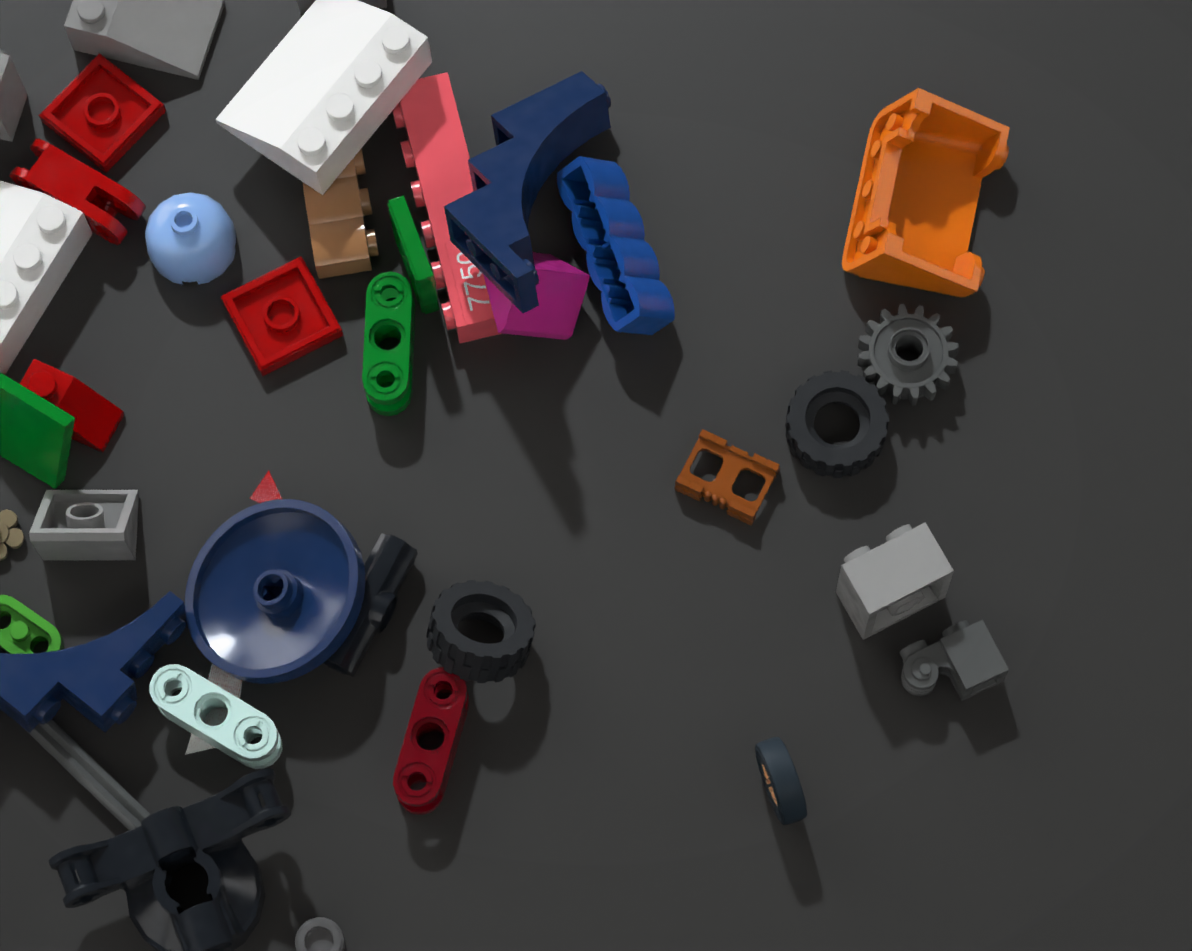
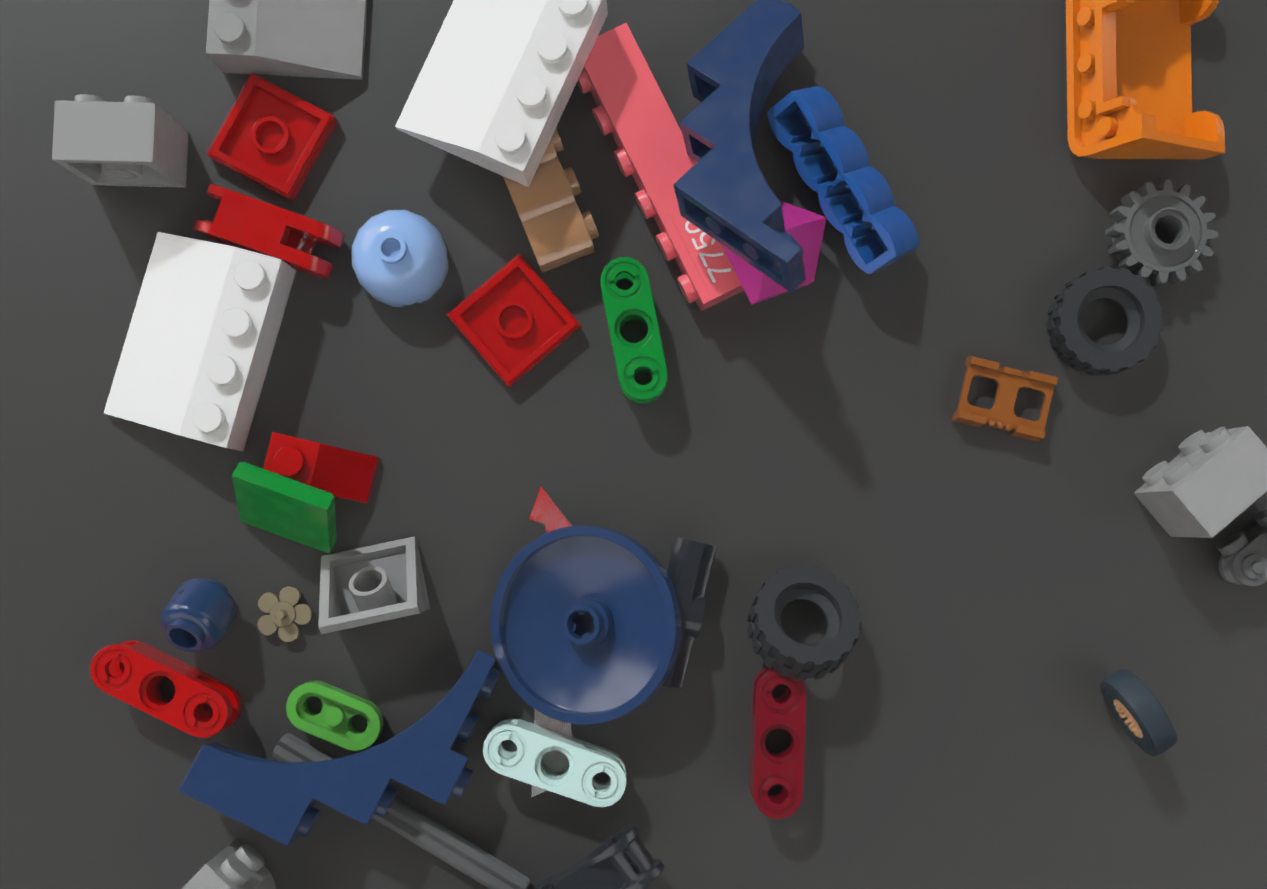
camera: 20 degrees left, 15 degrees up
(413, 255) = (639, 233): green tile -> none

